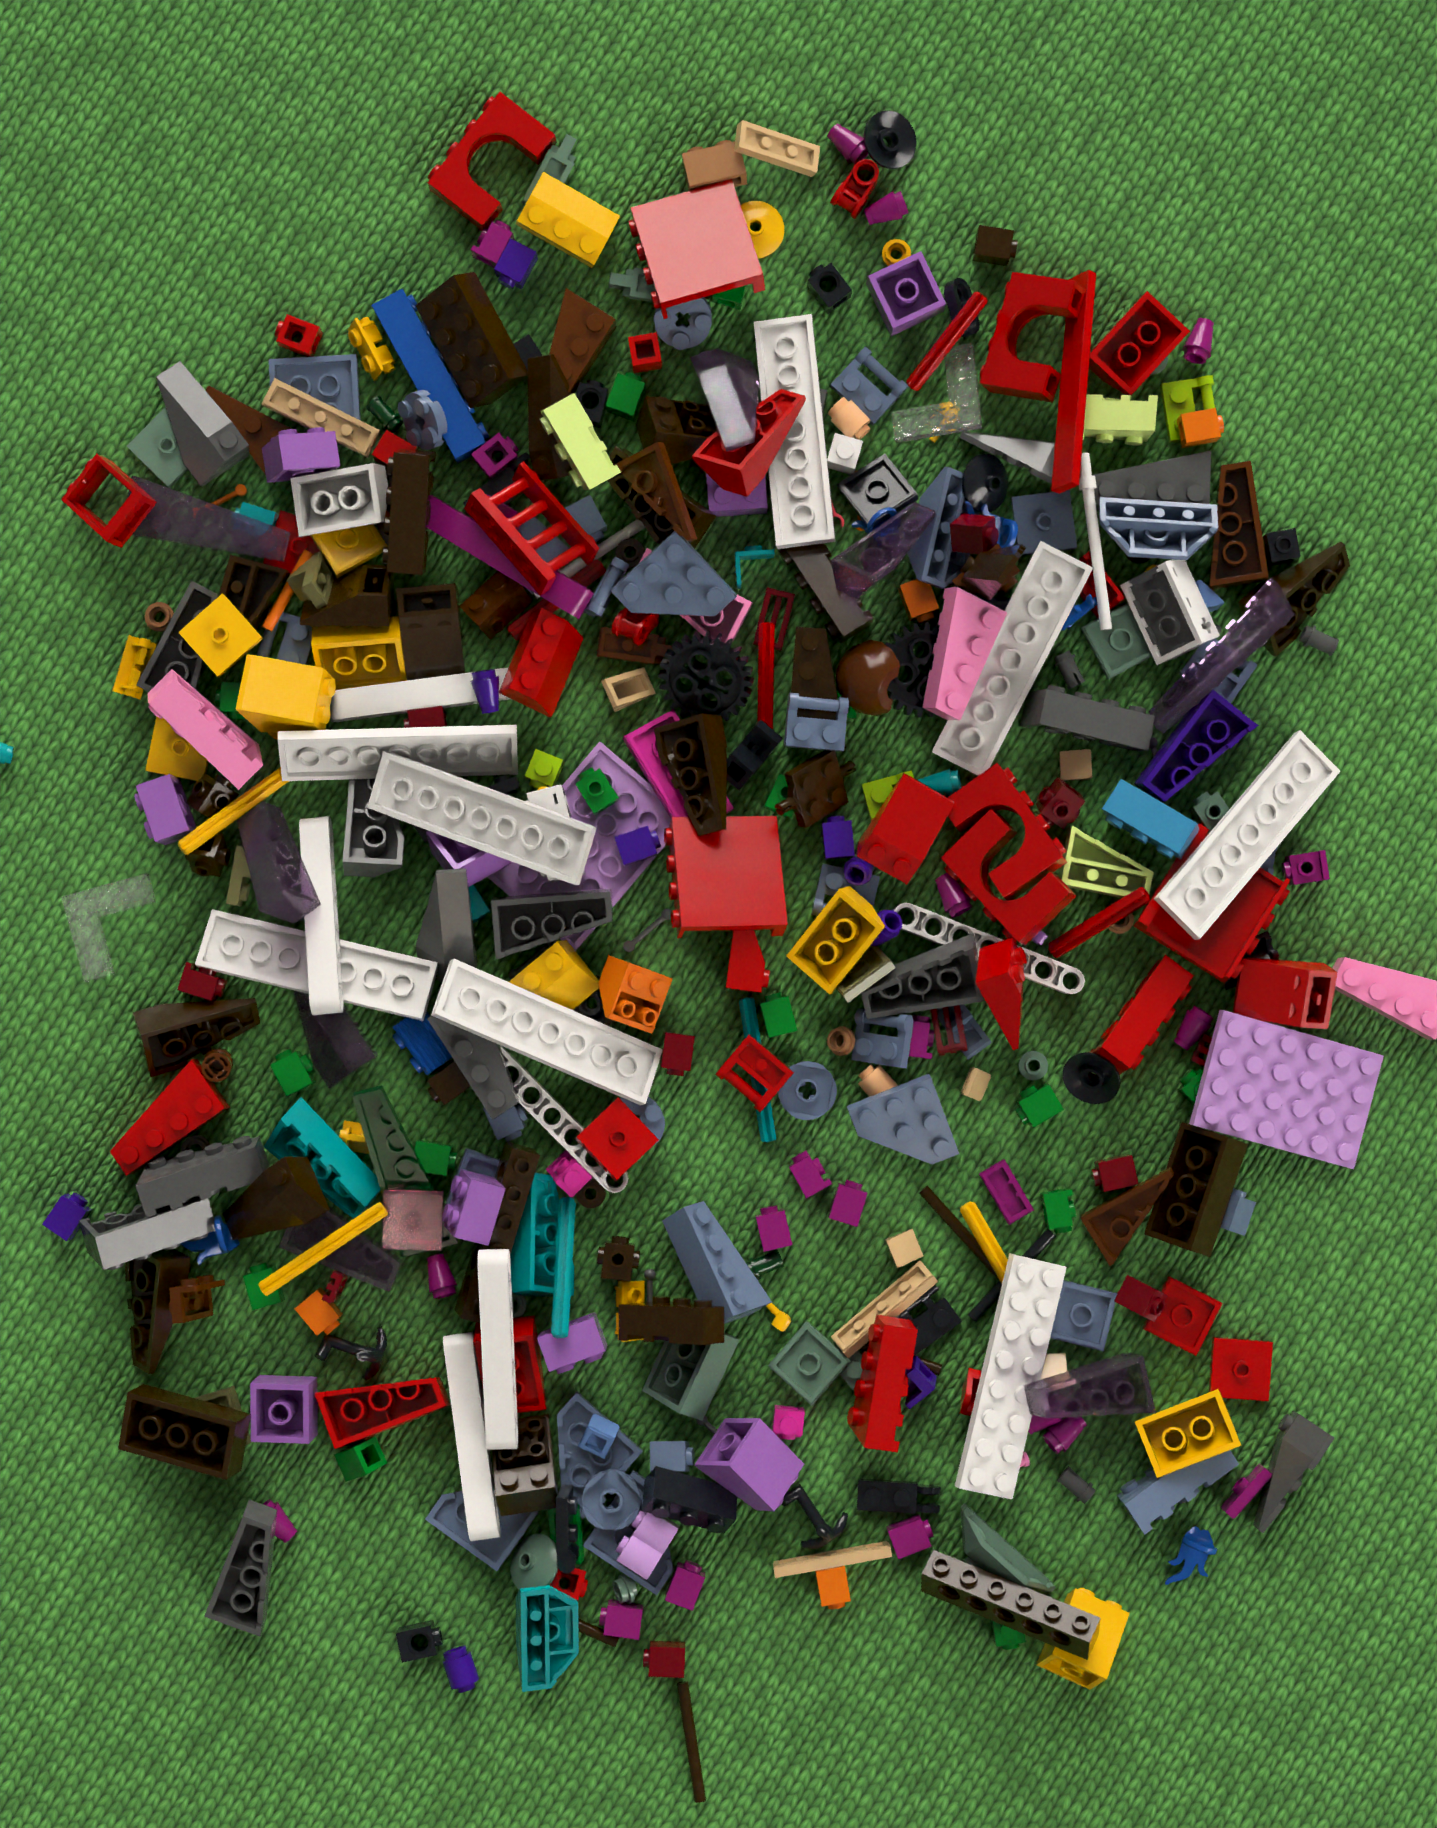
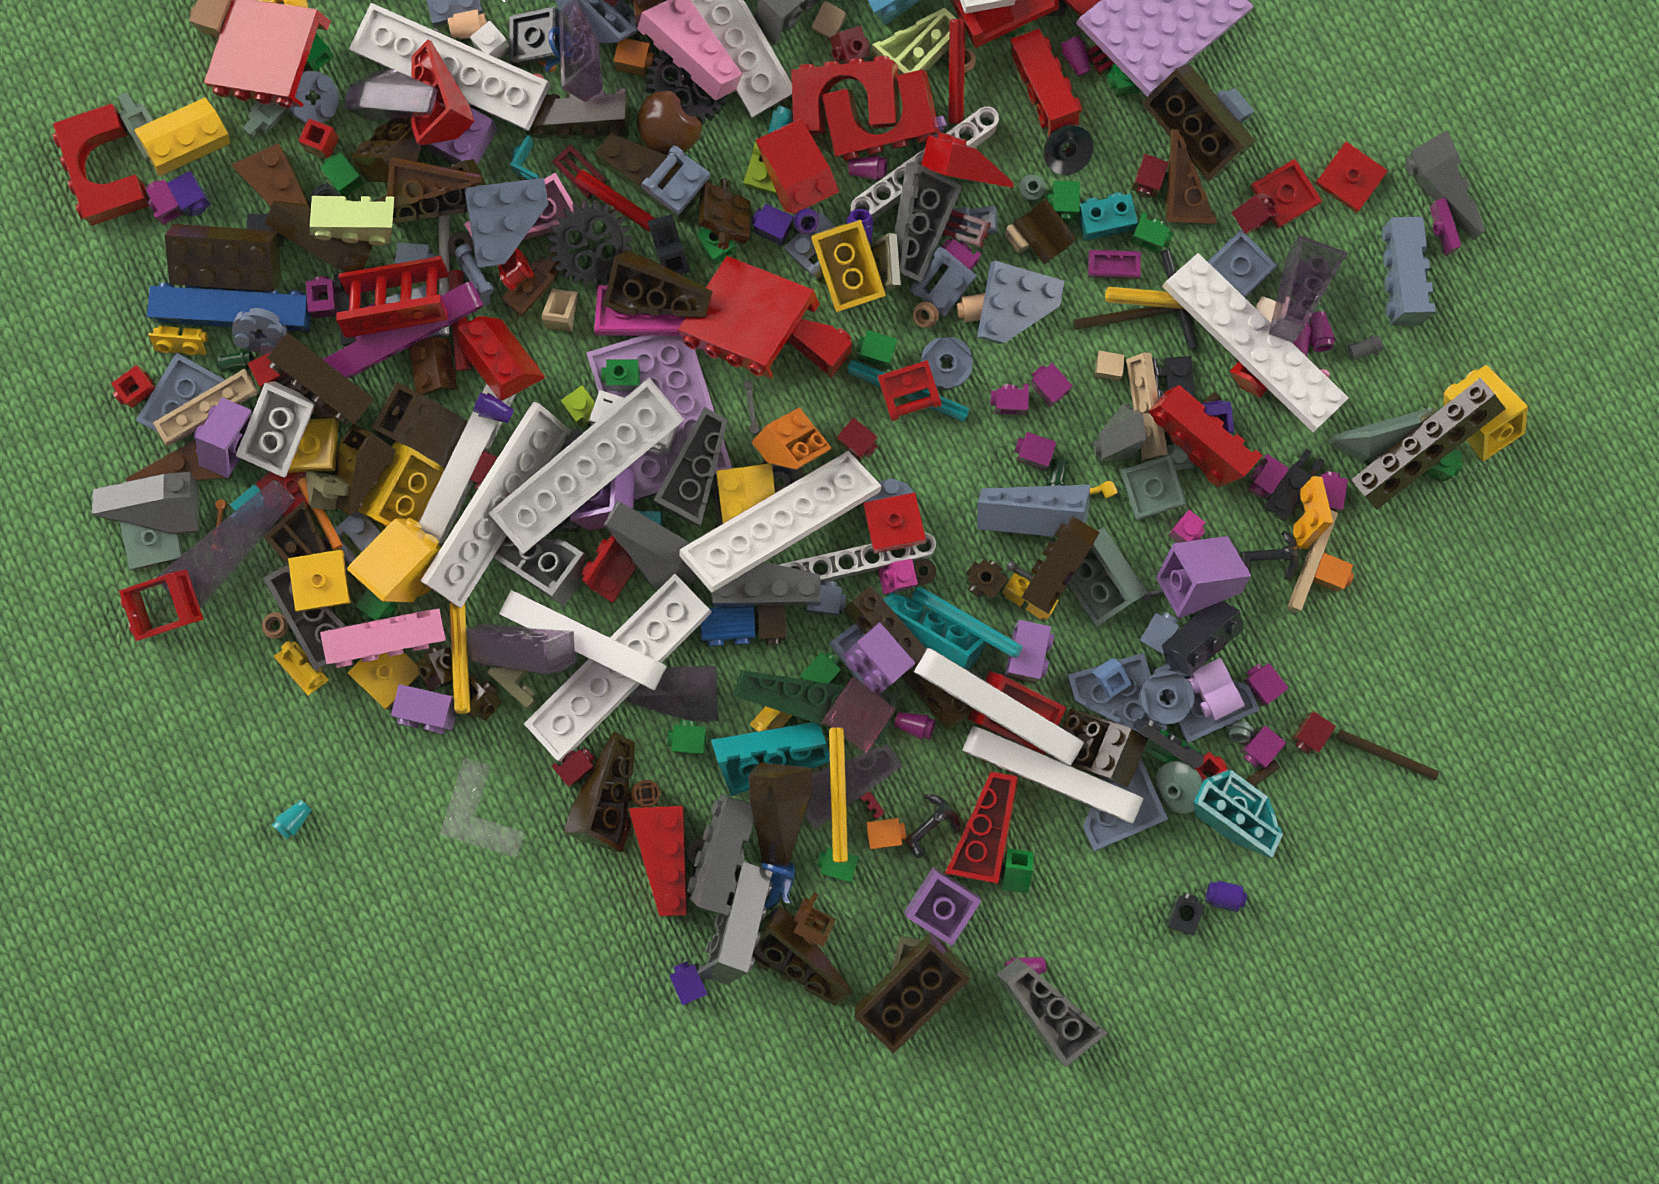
camera: 55 degrees left, 5 degrees down
(401, 898) = (609, 570): none -> red bracket
(637, 845) = (682, 370): dark purple brick -> none
(835, 1301) = (1120, 436): none -> dark grey wedge
(873, 1539) = (1316, 516): none -> light orange plate
(887, 1467) = (1267, 477): none -> magenta brick
(994, 1105) = (1045, 231): none -> dark brown panel
(1049, 1156) = (1107, 216): none -> teal brick
(1188, 1433) = (1377, 237): yellow slope -> none
(1194, 1550) = (1468, 295): blue piece -> none

